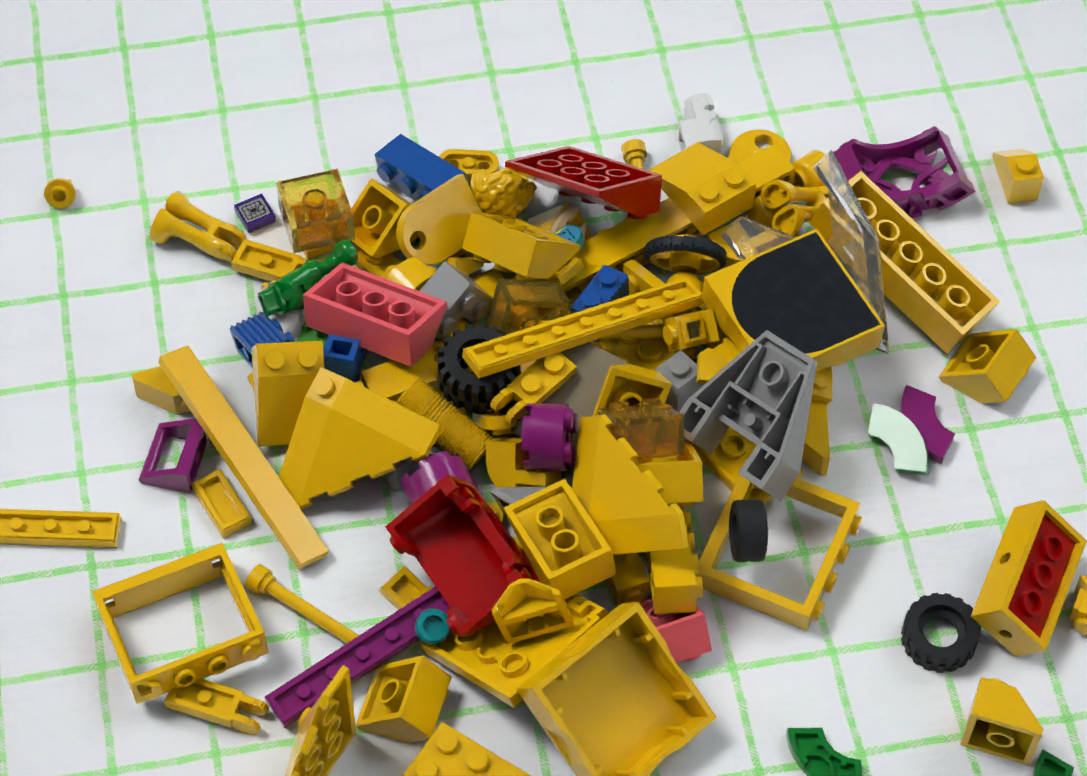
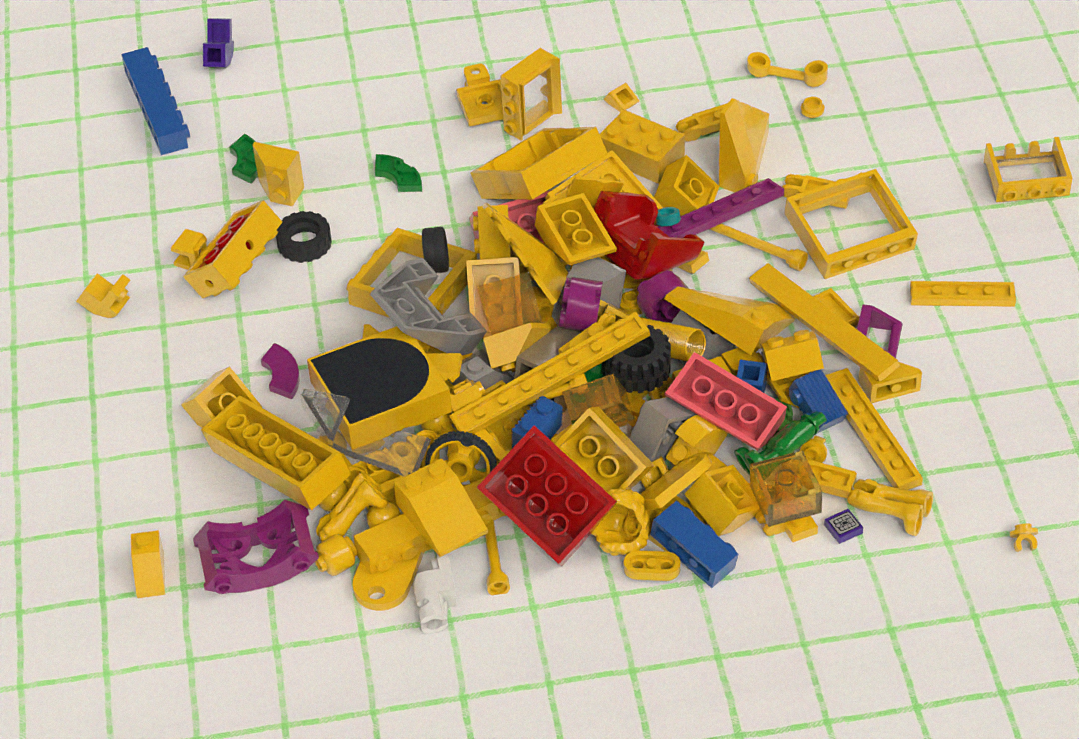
camera: 175 degrees left, 10 degrees down
(204, 323) = (874, 432): none -> yellow plate
(902, 438) = (300, 347): tile -> none

